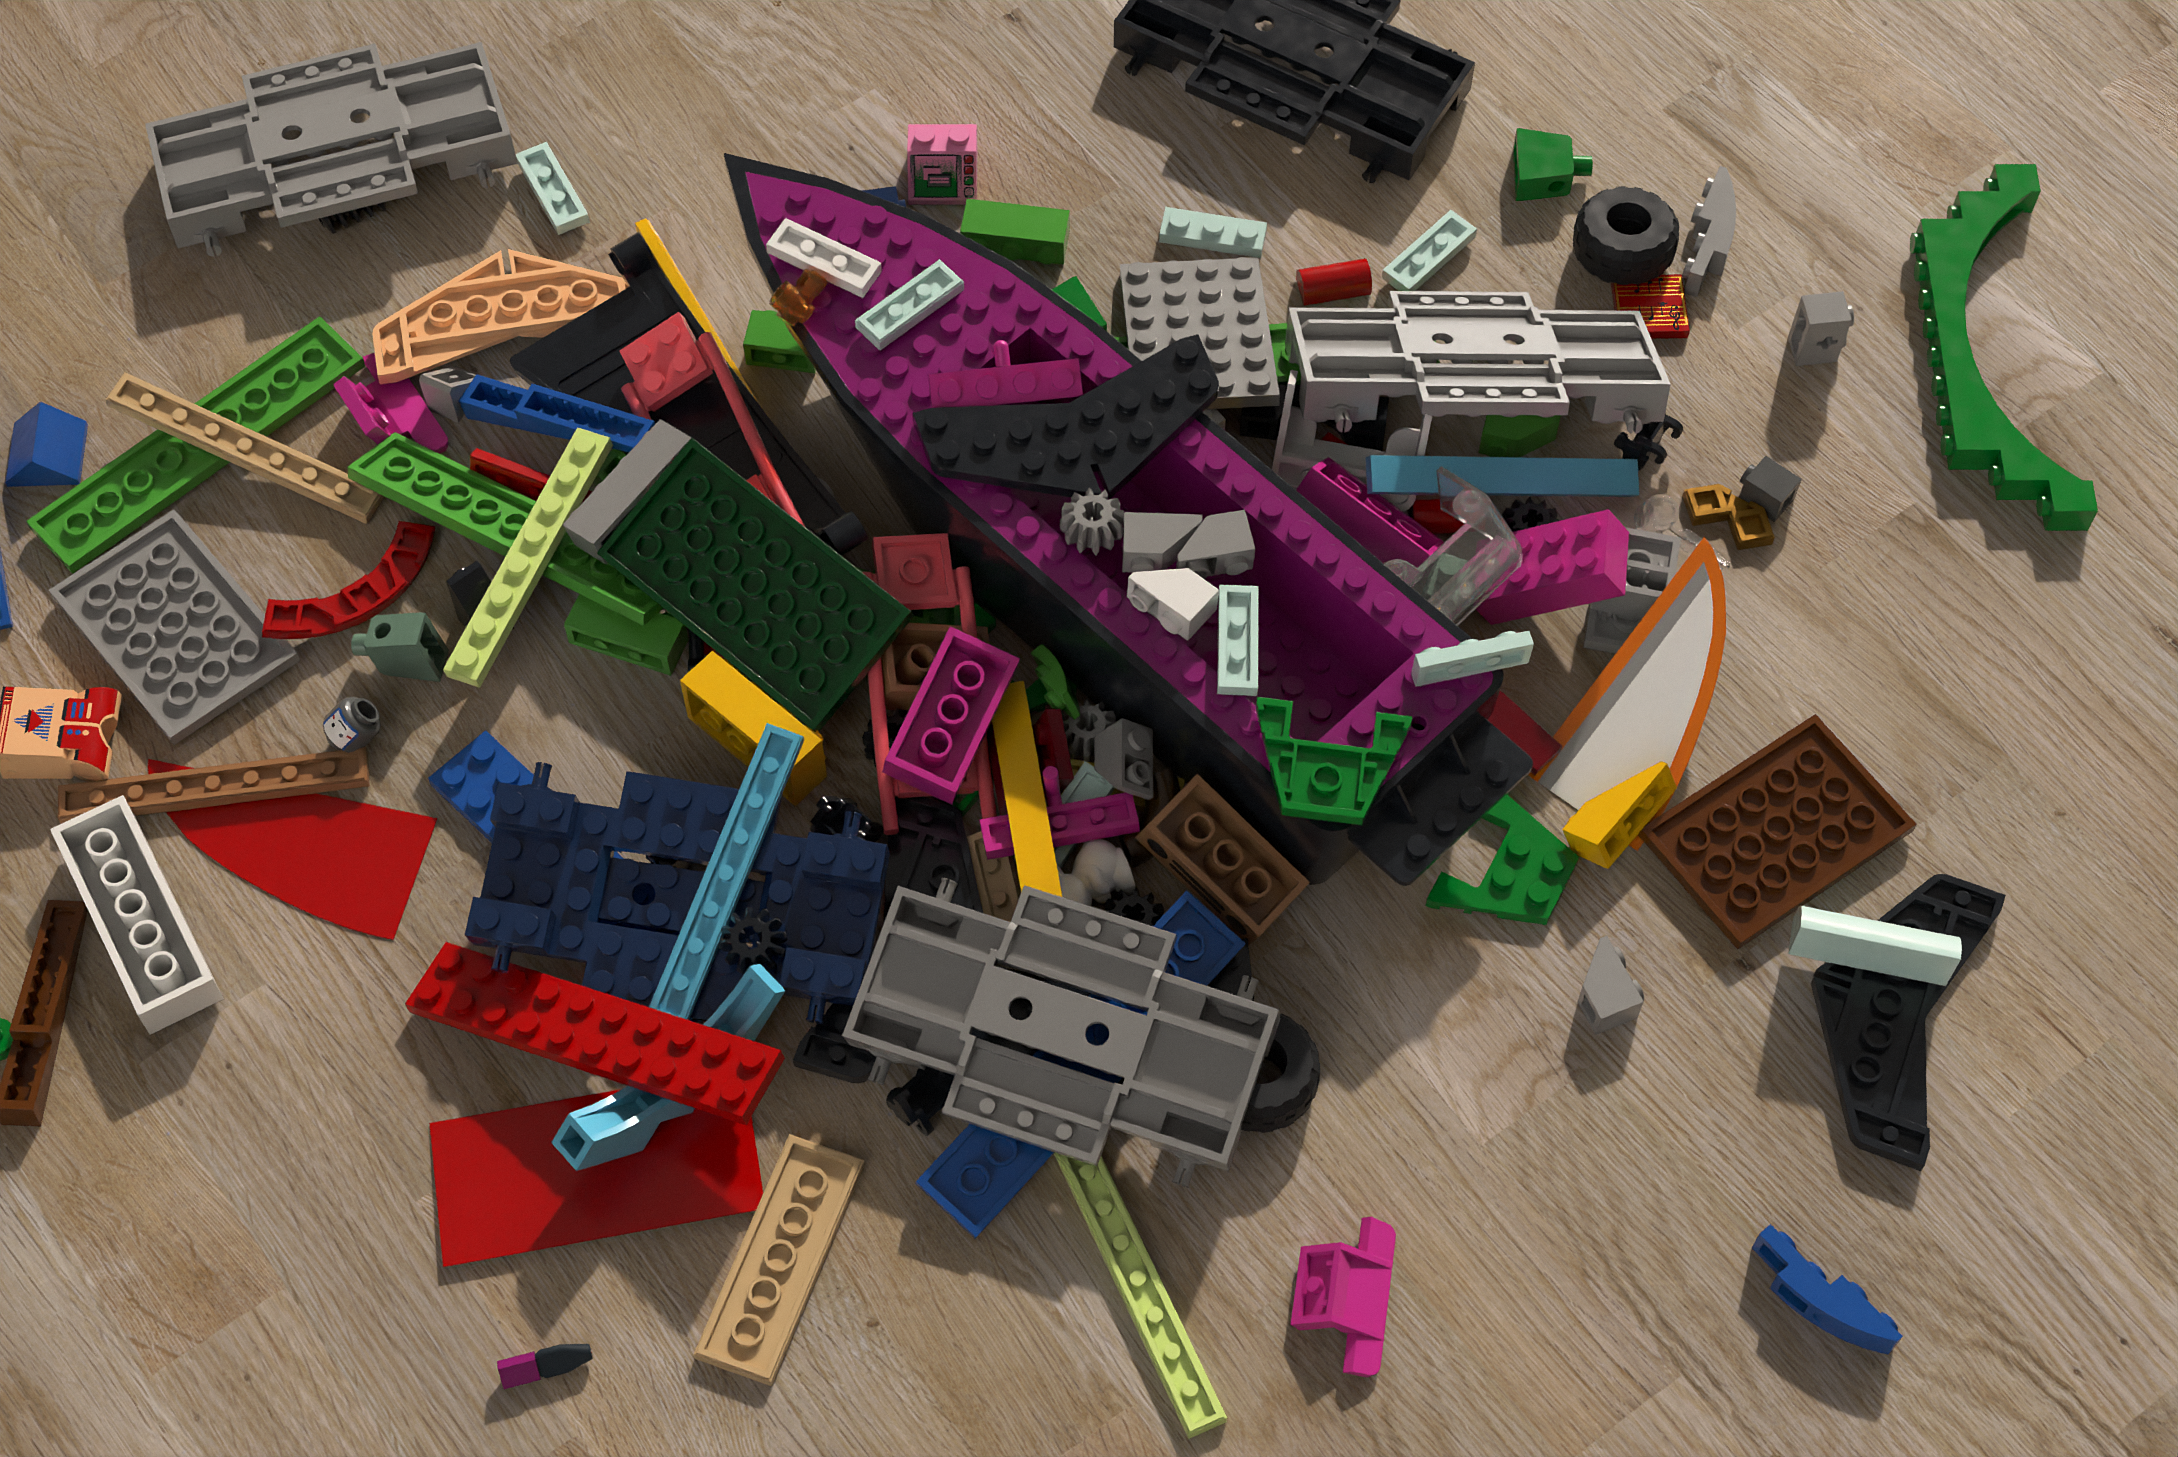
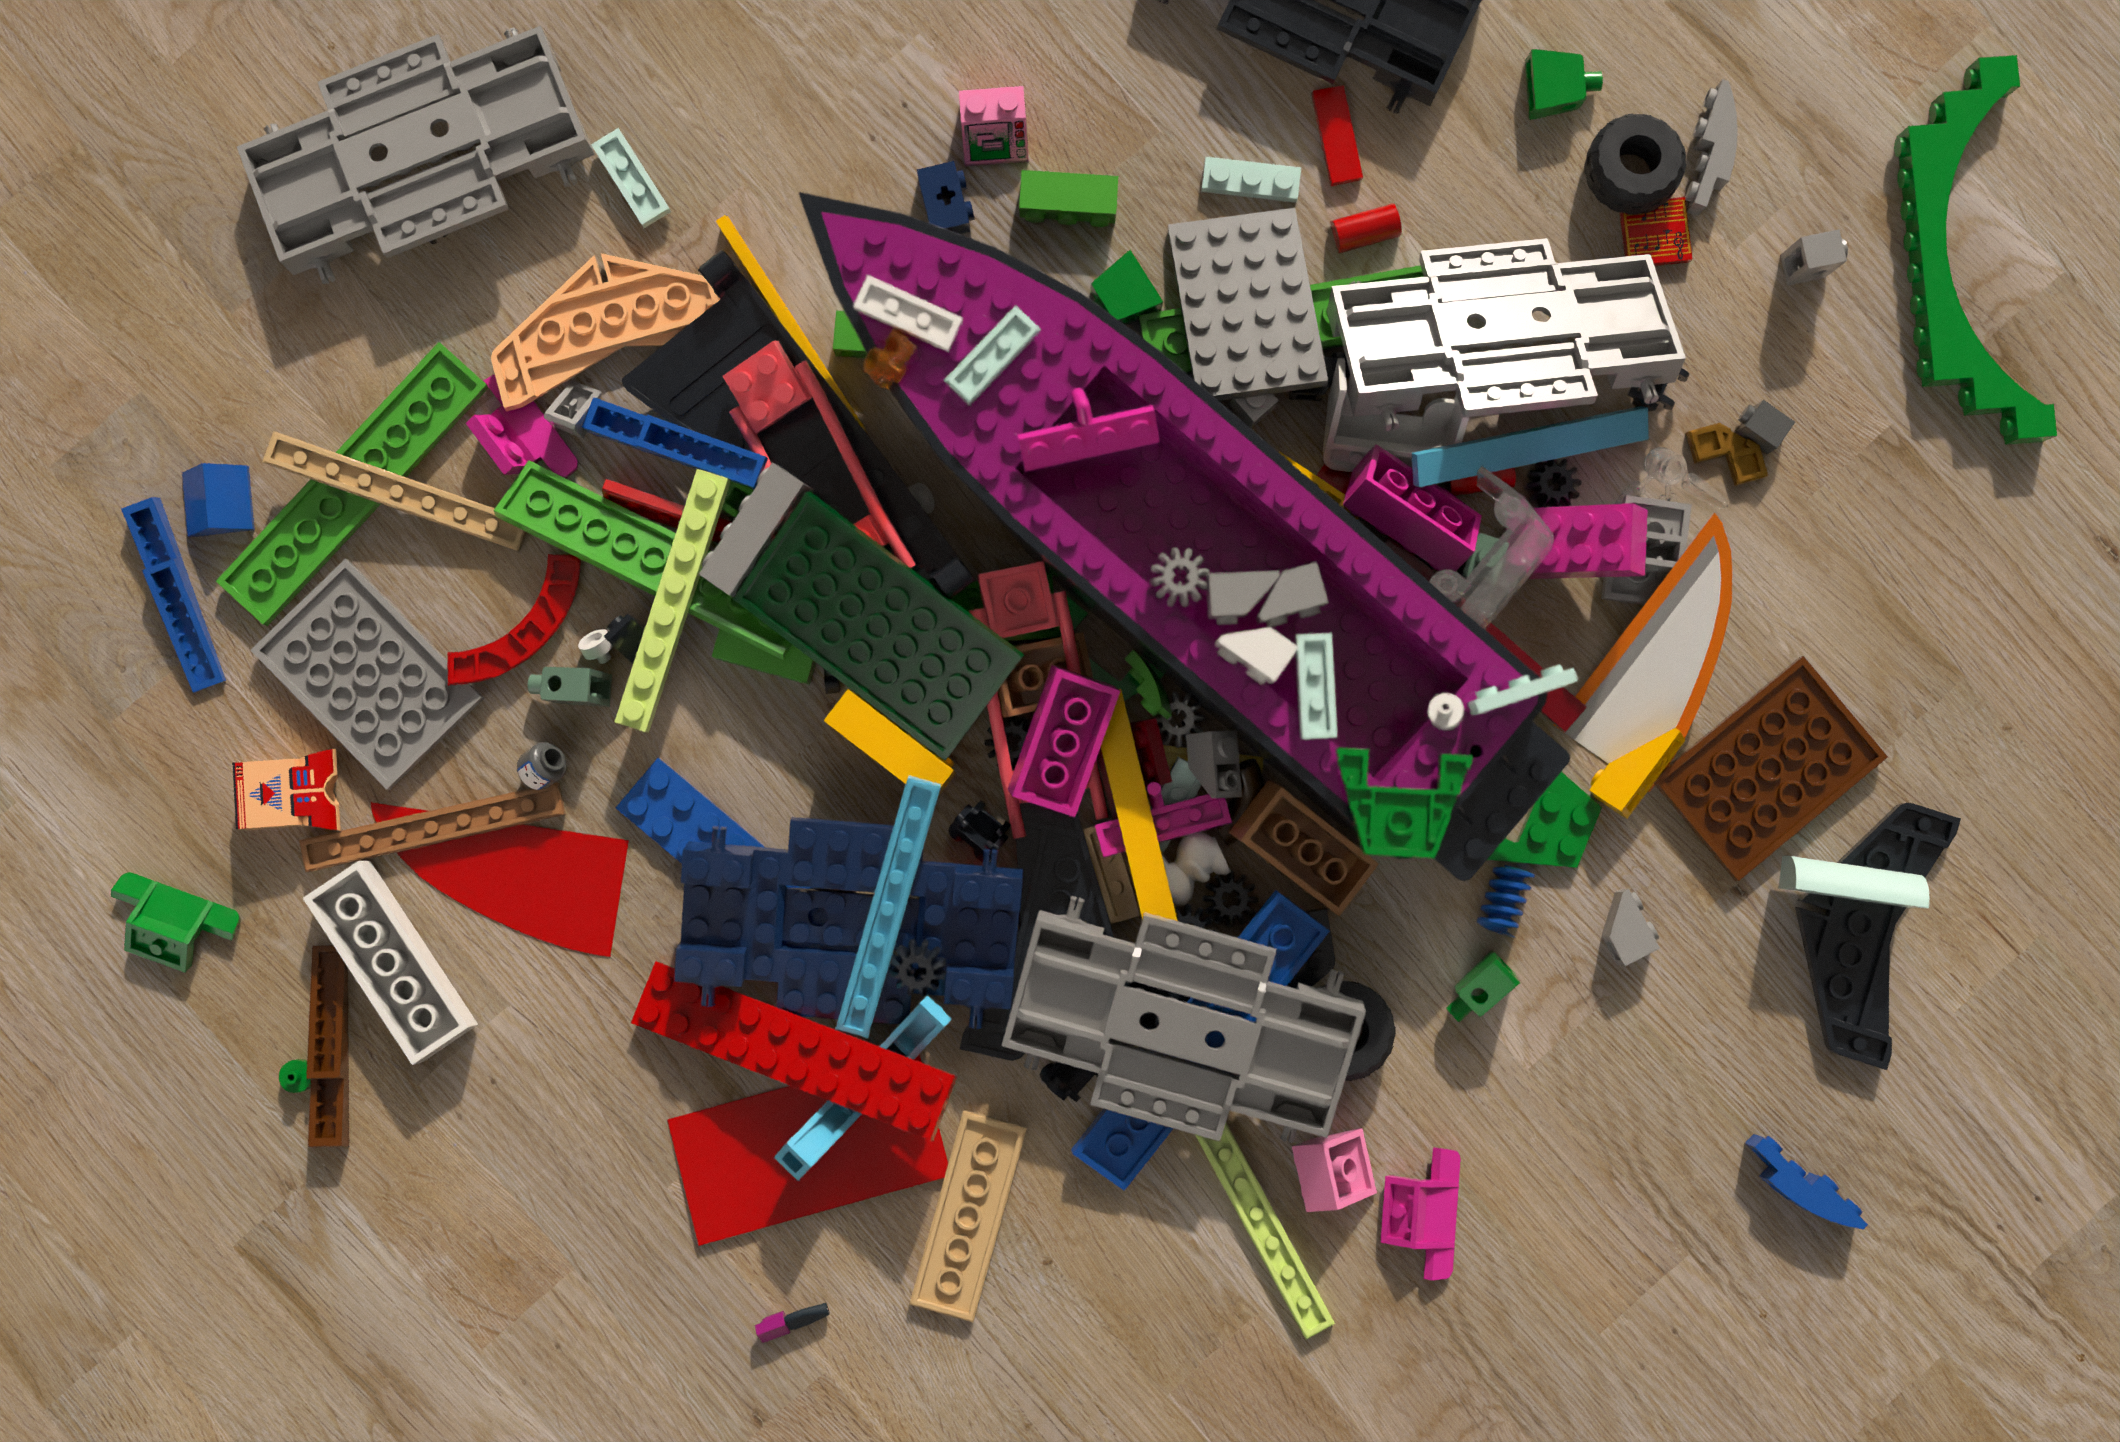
camera: 10 degrees left, 25 degrees up
(437, 614) = (595, 646): none -> white tile
(1062, 444) = (1141, 496): black wing -> none
(1237, 1231) = (1334, 1170): none -> bright pink slope
(1308, 199) = (1337, 135): none -> red tile
(1385, 677) = (1448, 718): none -> white tile
(1429, 252) = (1452, 191): light aqua plate -> none
(1438, 1019) = (1492, 976): none -> green torso
(1460, 943) = (1504, 899): none -> blue piece

